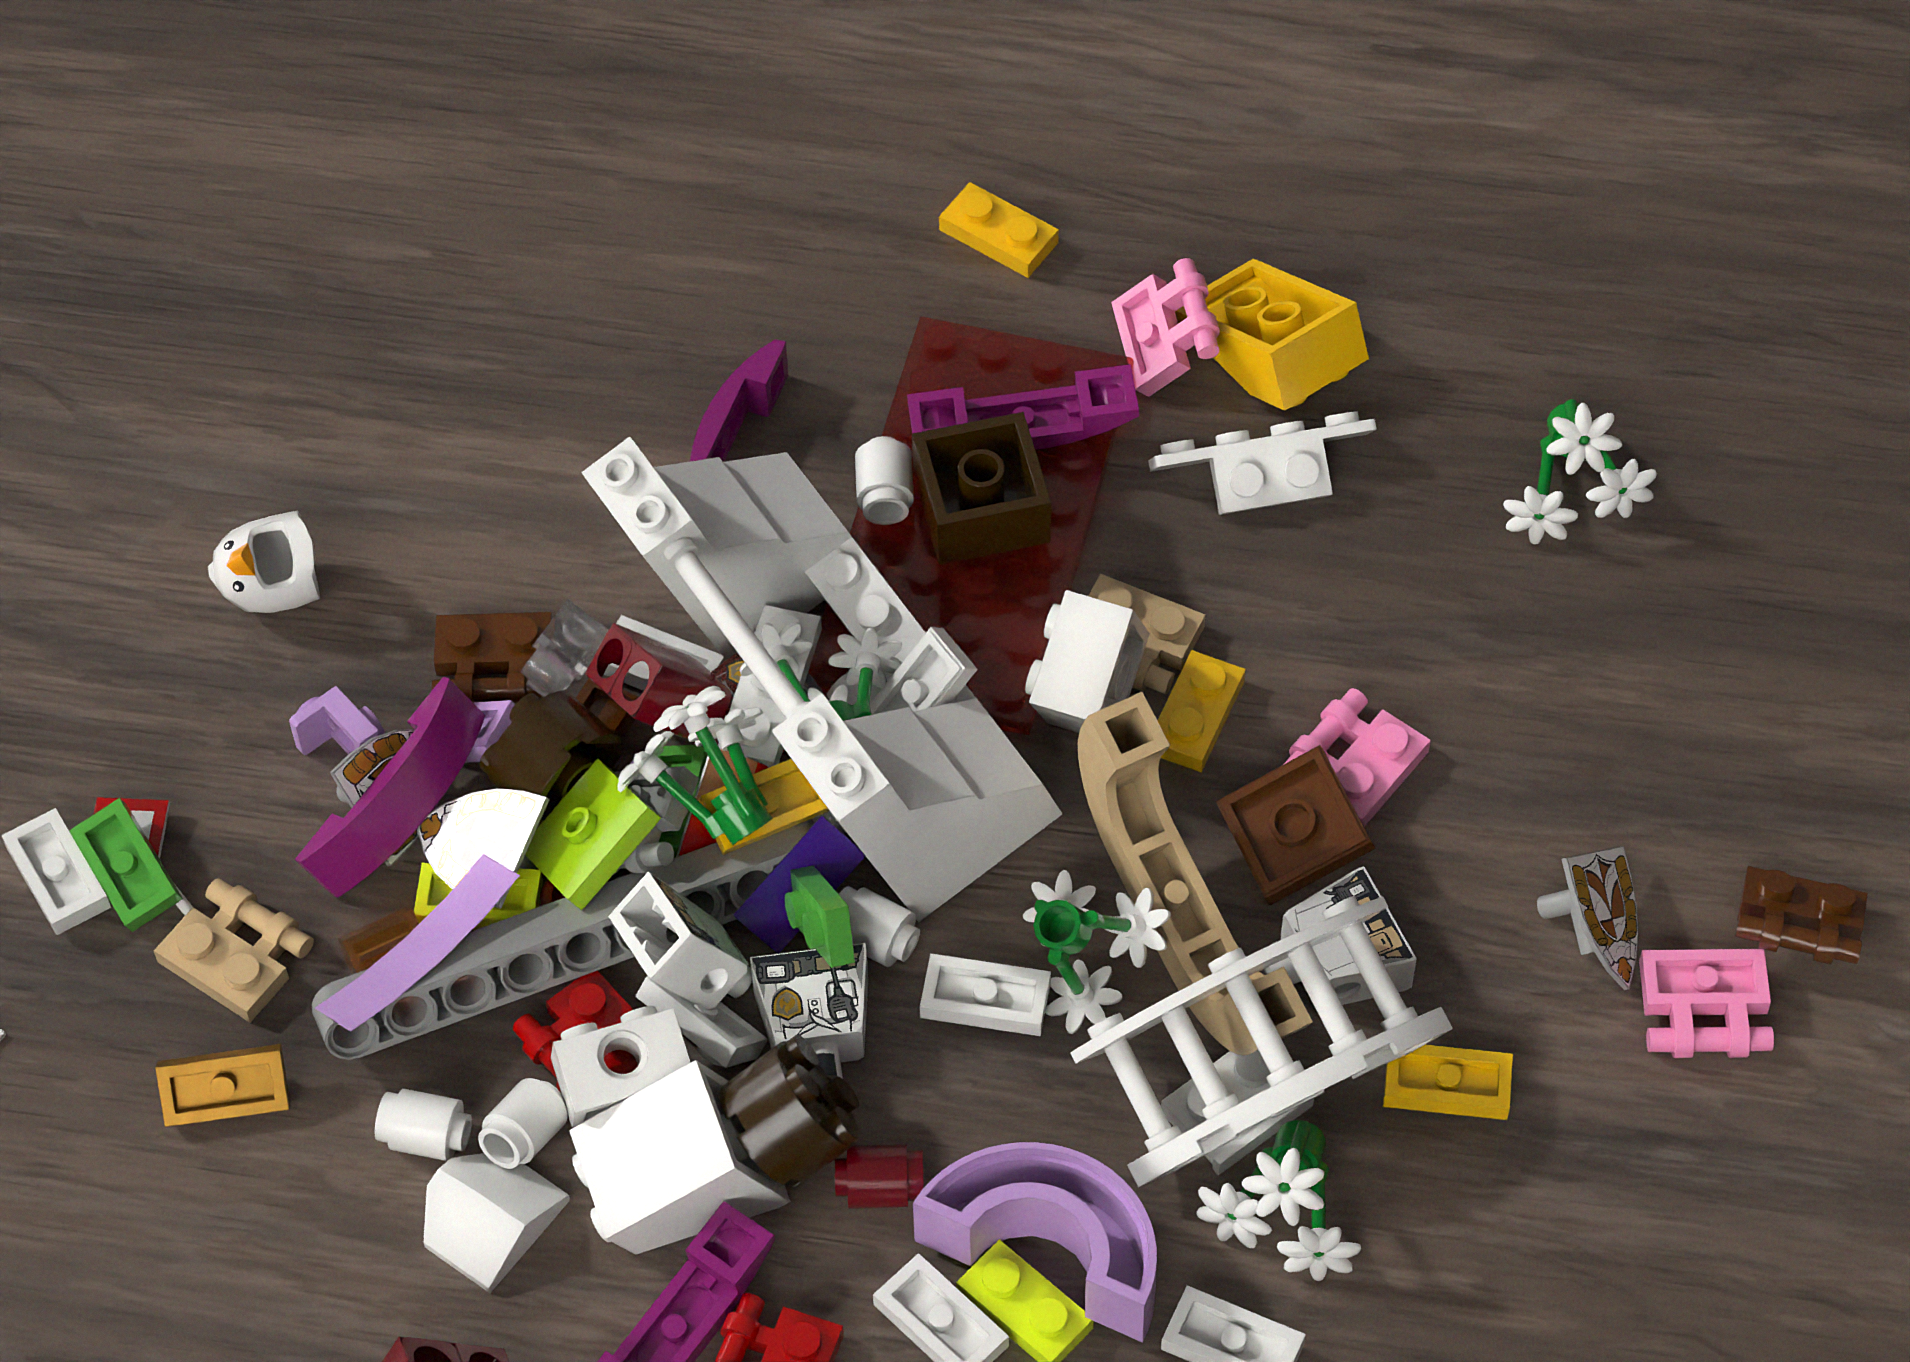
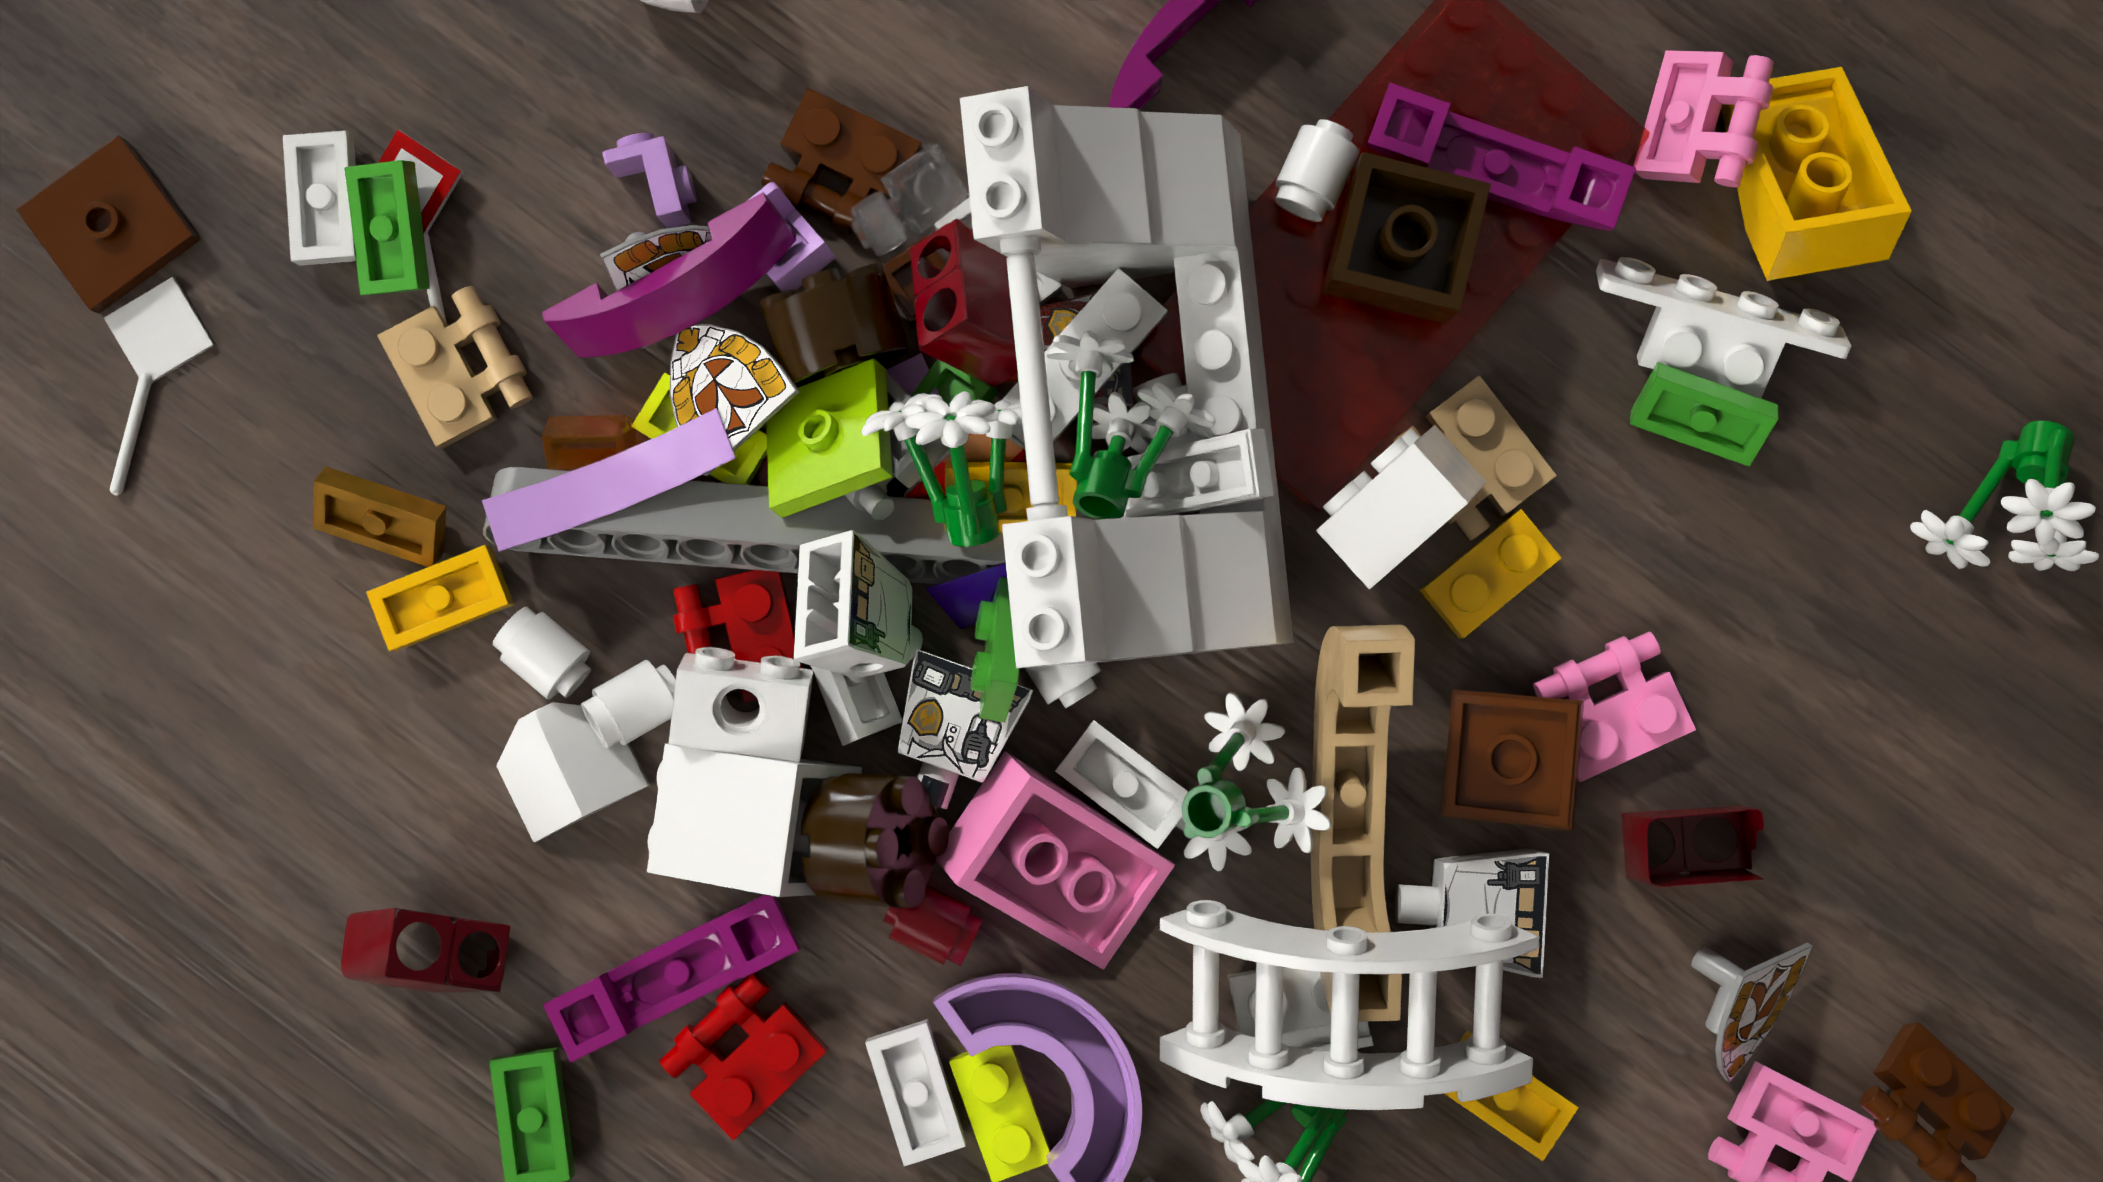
camera: 25 degrees right, 30 degrees up
(308, 1126) = (440, 598): none -> yellow plate
(955, 1075) = (1052, 861): none -> bright pink slope
(1293, 520) = (1704, 414): none -> bright green plate
(1473, 788) = (1682, 826): none -> dark red piece

